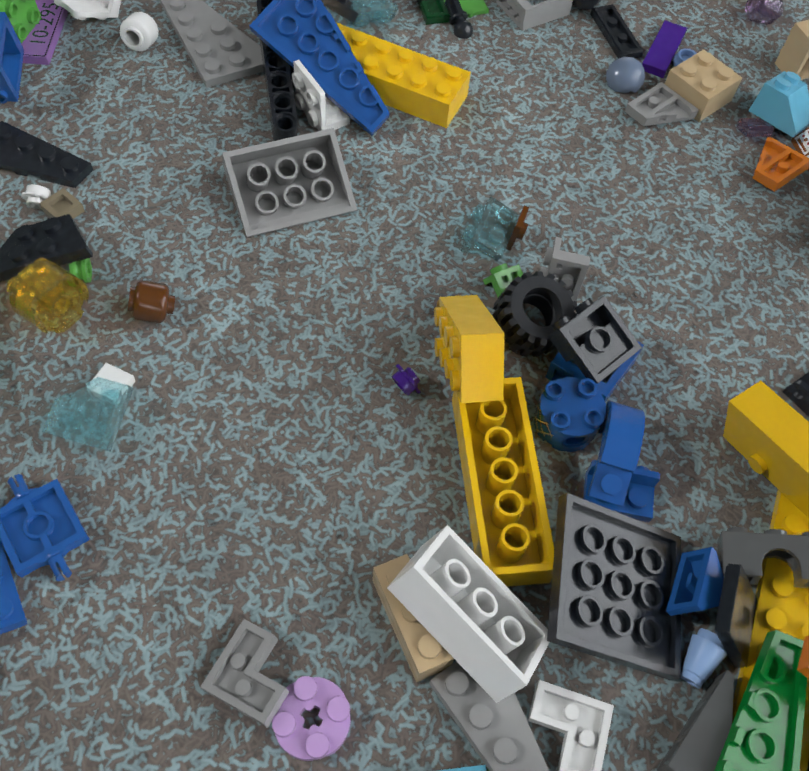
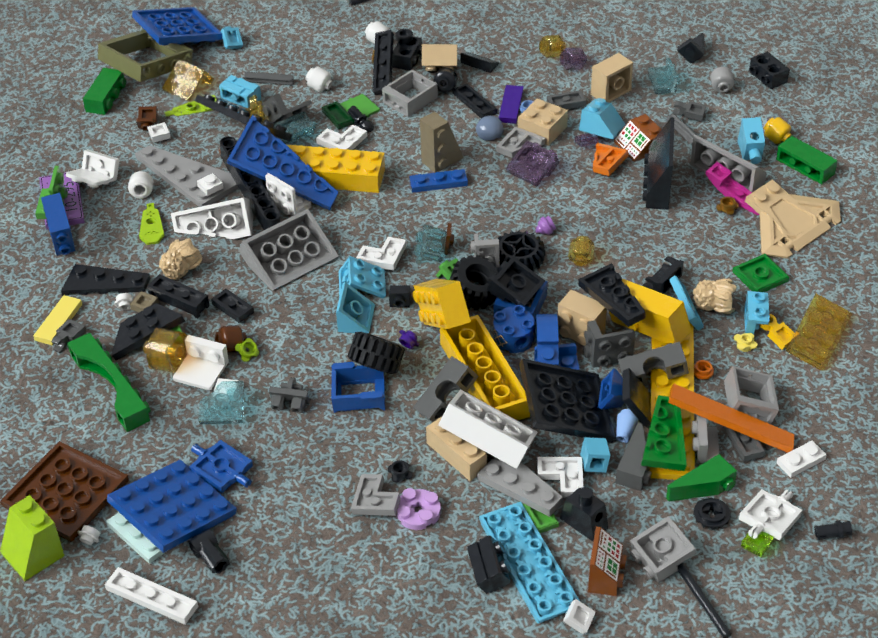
camera: 10 degrees left, 15 degrees down
(92, 333) = (203, 363): none -> white bracket
(110, 209) = (178, 295): none -> black container
(126, 103) = (154, 232): none -> lime piece
(134, 154) = (179, 259): none -> tan hair
(163, 334) = (249, 344): none -> lime plate
(179, 246) = (232, 305): none -> black plate
(204, 439) = (289, 393): none -> dark grey hips
(224, 110) = (225, 219): none -> white wedge
(225, 55) = (210, 184): none -> white plate
(294, 416) = (347, 374): none -> blue piece
(301, 621) = (399, 471): none -> black plate
(343, 308) = (353, 311): none -> medium azure slope
(343, 399) = (376, 353): none -> black tyre
(375, 255) = (363, 276): none -> medium azure bracket
(400, 519) = (452, 377): none -> dark grey arch
(418, 231) = (387, 256): none -> white plate
(419, 300) = (399, 296): none -> black bracket
(427, 42) = (348, 140): none -> white plate
(533, 133) = (438, 180): none -> blue plate
(548, 77) = (438, 143): none -> dark tan wedge
(618, 276) = (523, 247): none -> black gear
(638, 711) = (595, 454): none -> medium azure brick
(664, 246) = (545, 226): none -> medium lavender plate
(671, 143) = (533, 163): none -> clear purple plate
(682, 429) = (575, 312): none -> tan brick
(698, 499) = (607, 348): none -> dark grey bracket
(707, 303) = (581, 251): none -> clear yellow head
(744, 63) = (568, 100): none -> dark grey plate
(746, 413) = (610, 292): none -> black wing

